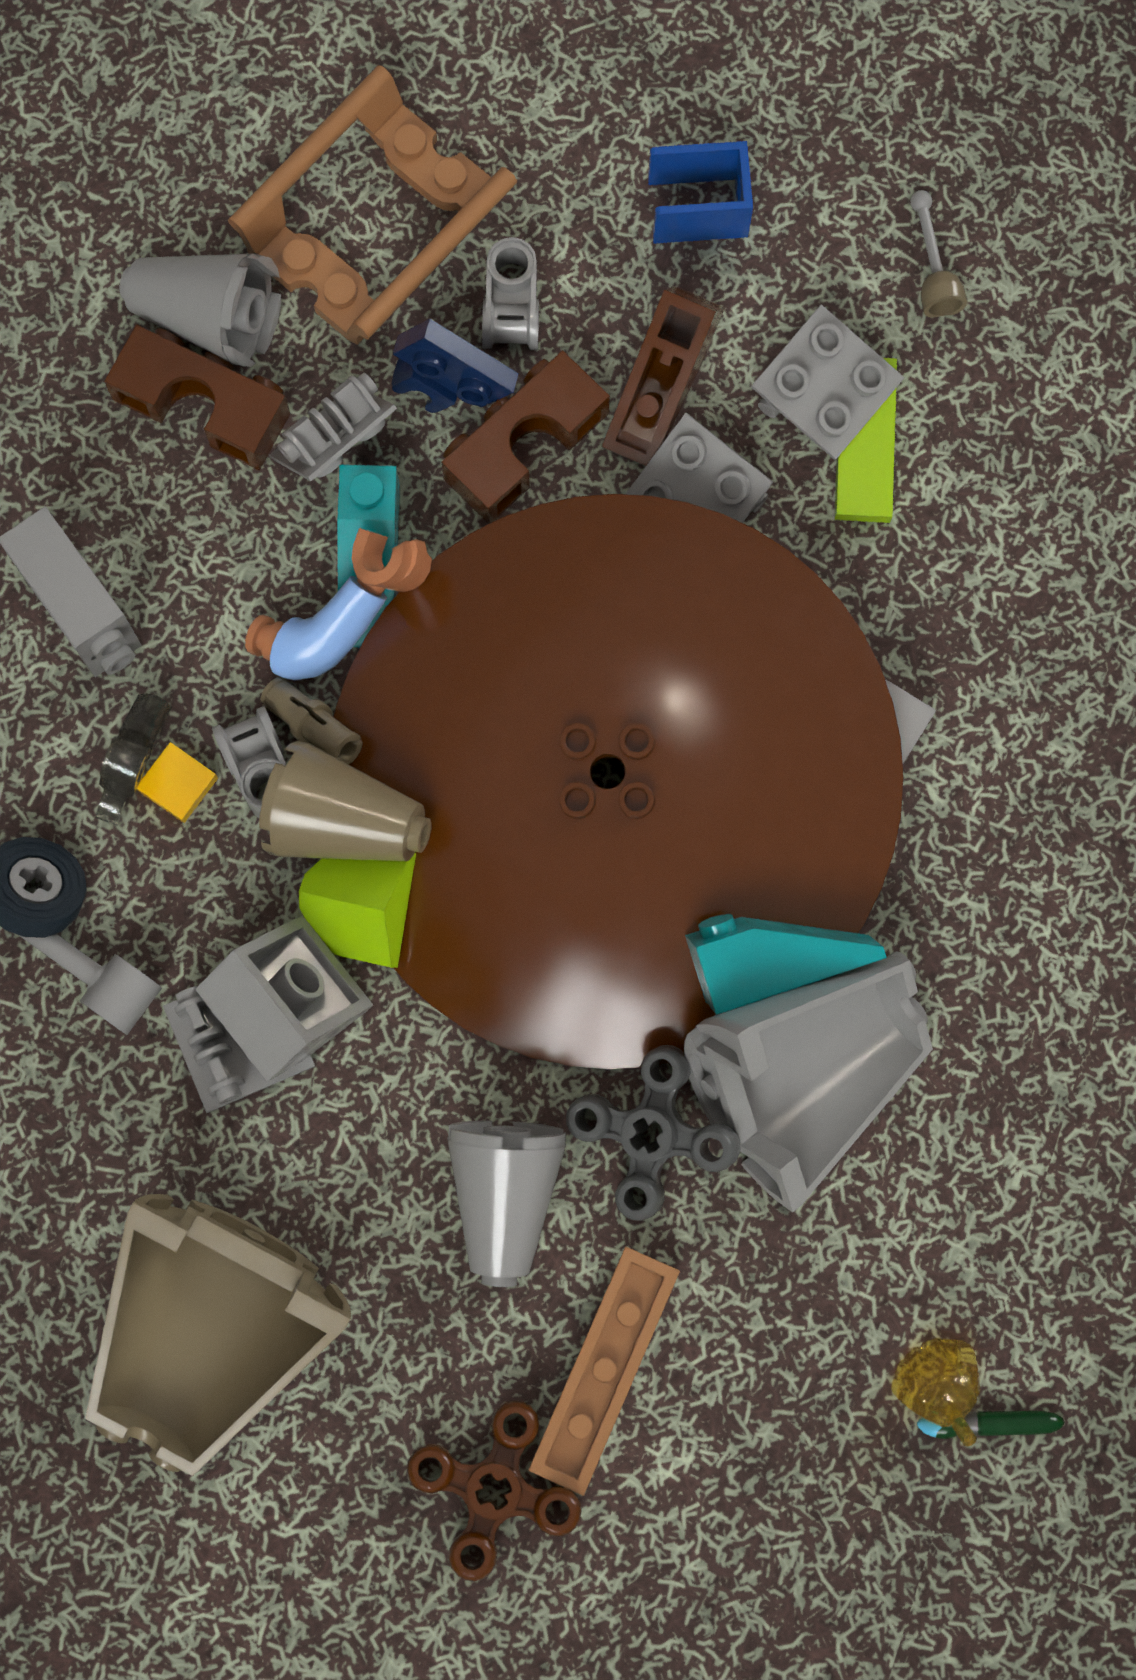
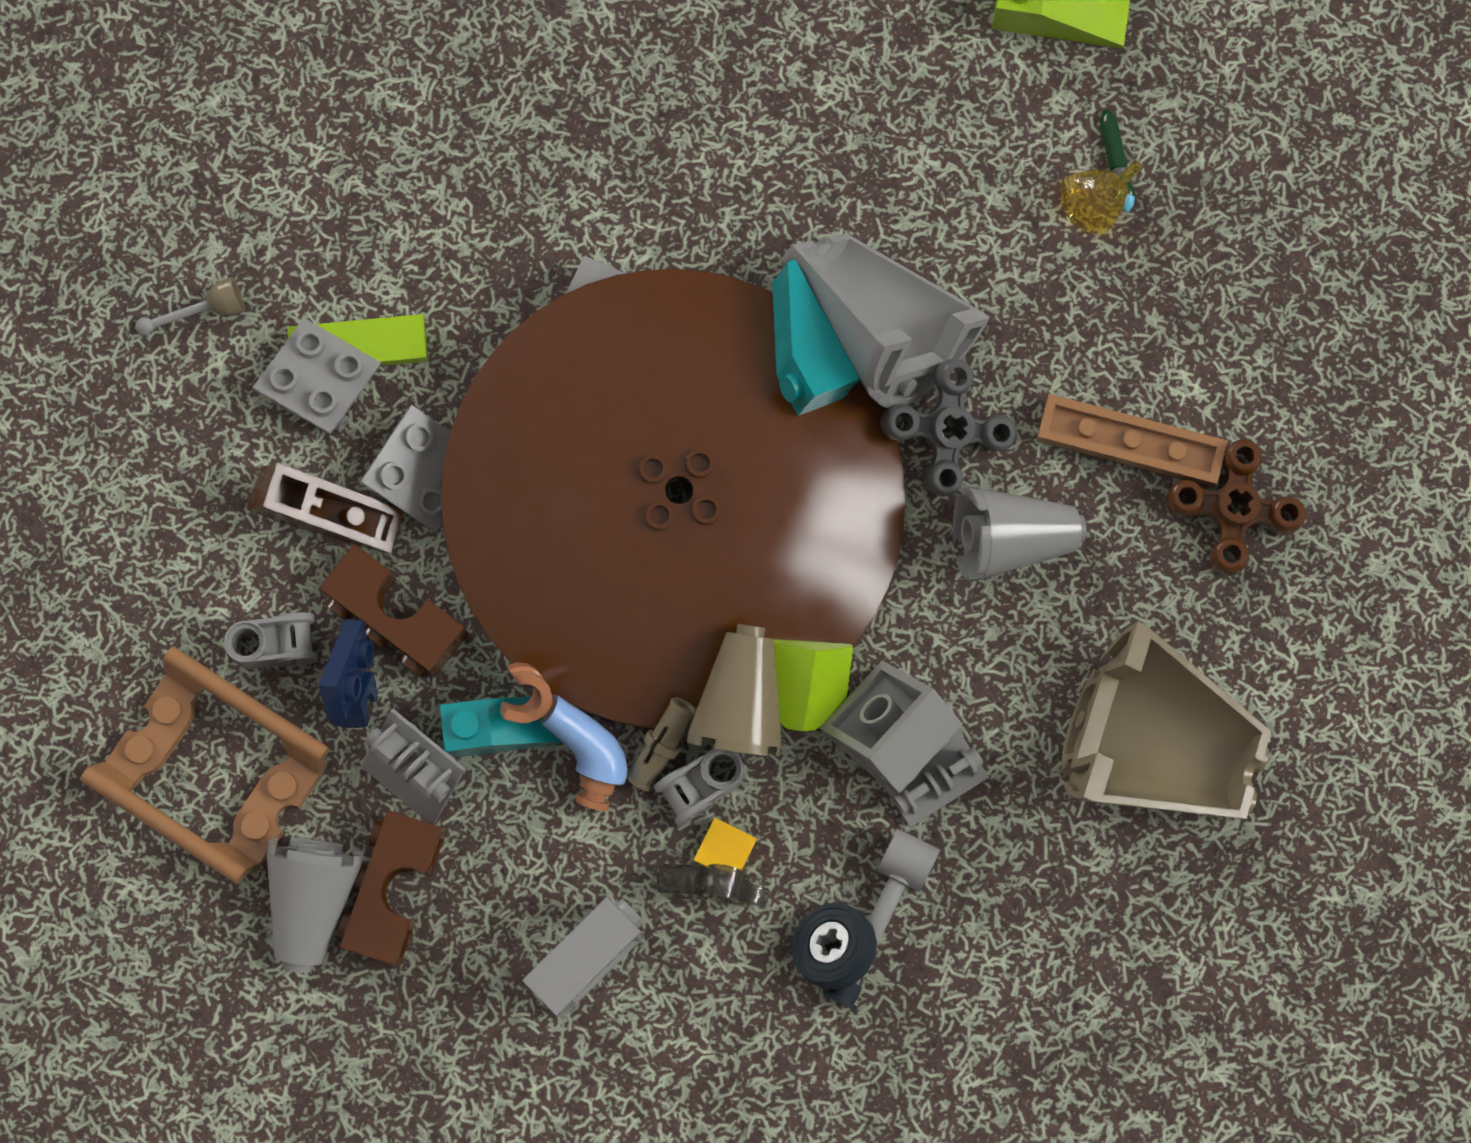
camera: 95 degrees left, 0 degrees up
(702, 164) = (142, 467): blue piece -> none

